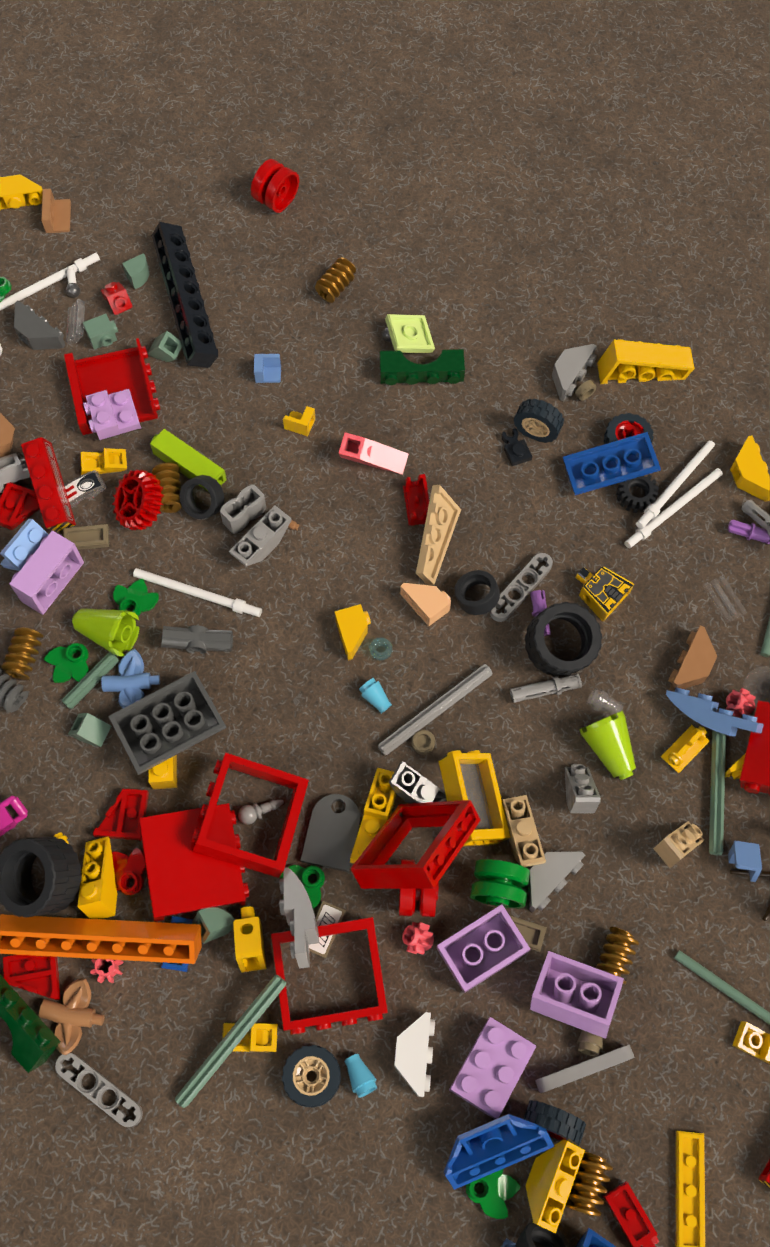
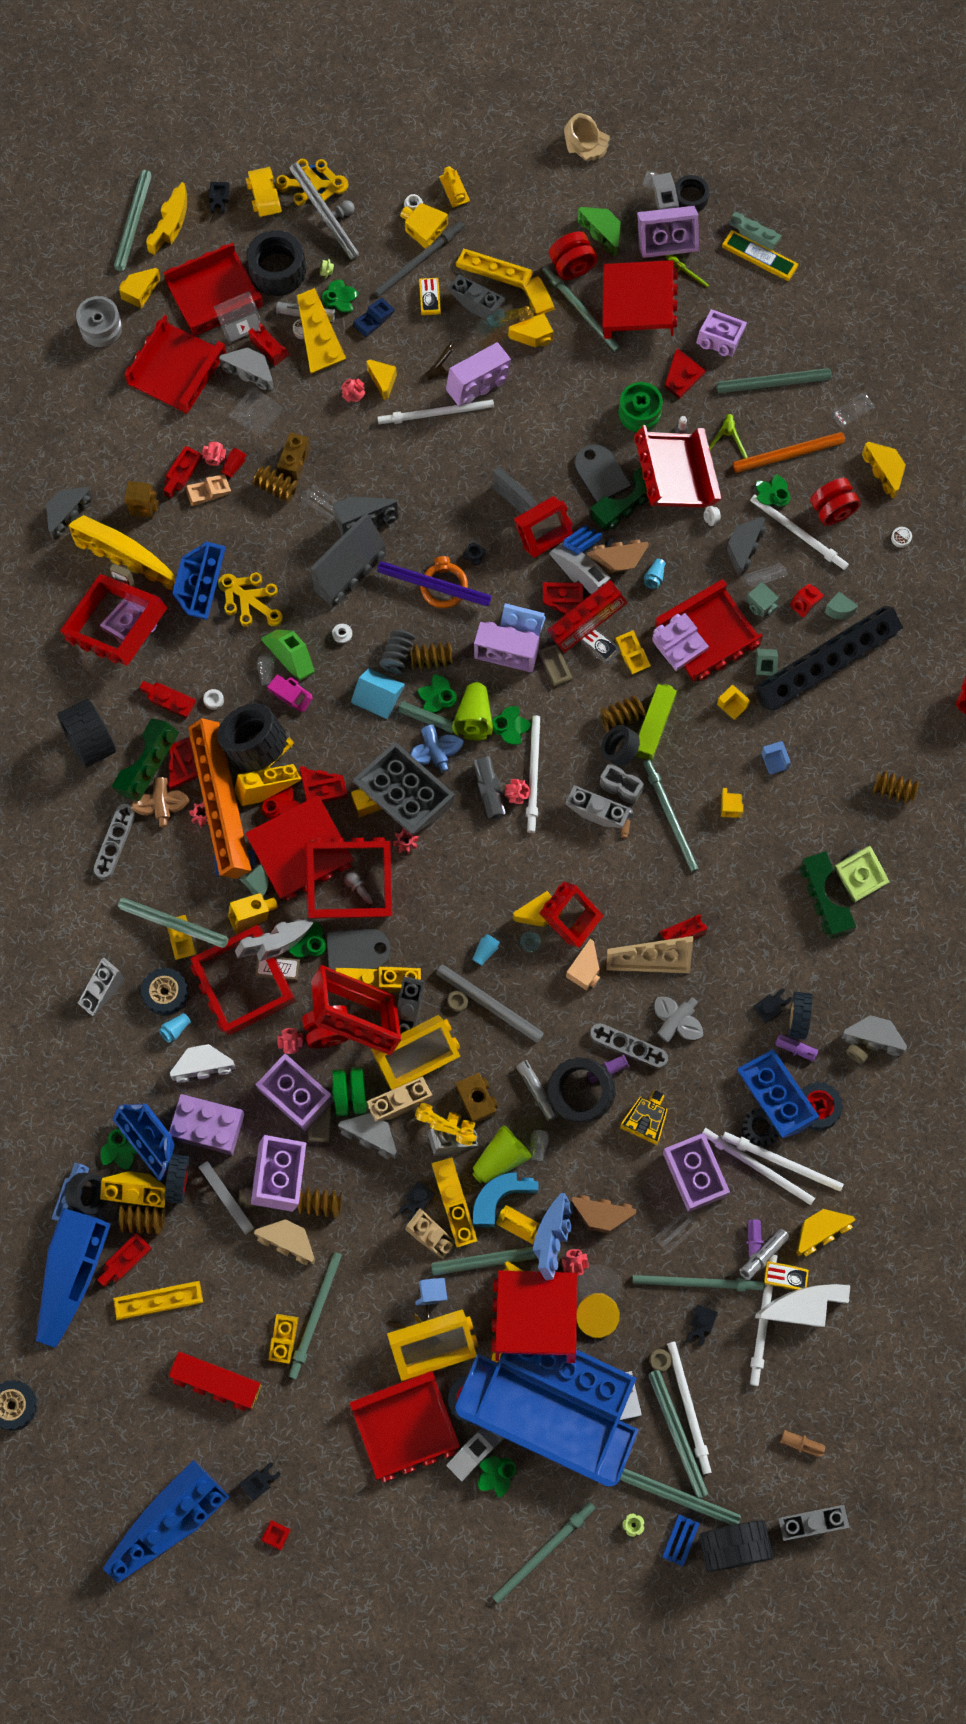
camera: 75 degrees right, 5 degrees up
(29, 238) = (835, 501): none -> red wheel
(30, 416) = (654, 575): none -> medium azure cone
(40, 725) = (377, 693): none -> medium azure slope
(55, 213) = (880, 511): medium nougat panel -> none
(72, 288) = (801, 559): piece -> none
(88, 205) = (901, 537): none -> white tile
(89, 729) = (384, 732): sand green brick -> none
(138, 500) = (598, 694): red gear -> none
(195, 387) = (733, 702): none -> yellow panel
(212, 612) = (516, 791): none -> coral gear
(220, 737) = (405, 847): none -> coral gear
(247, 480) = (655, 781): none -> sand green bar
(283, 1159) = (101, 987): none -> light grey slope
(372, 453) = (716, 877): slope -> none
(385, 595) = (584, 924): none -> red window
(474, 578) = (614, 995): black tyre -> none
(505, 534) = (677, 1019): none -> light grey plant
(528, 759) = (476, 1085): none -> pearl gold brick
(565, 438) = (796, 1047): none -> medium lavender axle
(570, 786) = (463, 1136): none -> yellow plant
(633, 846) = (418, 1198): none -> black plate
(644, 362) = (908, 1103): yellow wedge -> none
(649, 767) = (494, 1191): none -> dark azure arch
(649, 808) = (454, 1202): none -> yellow slope
(651, 1007) = (288, 1239): none -> tan slope
(672, 560) = (696, 1172): none -> lavender brick

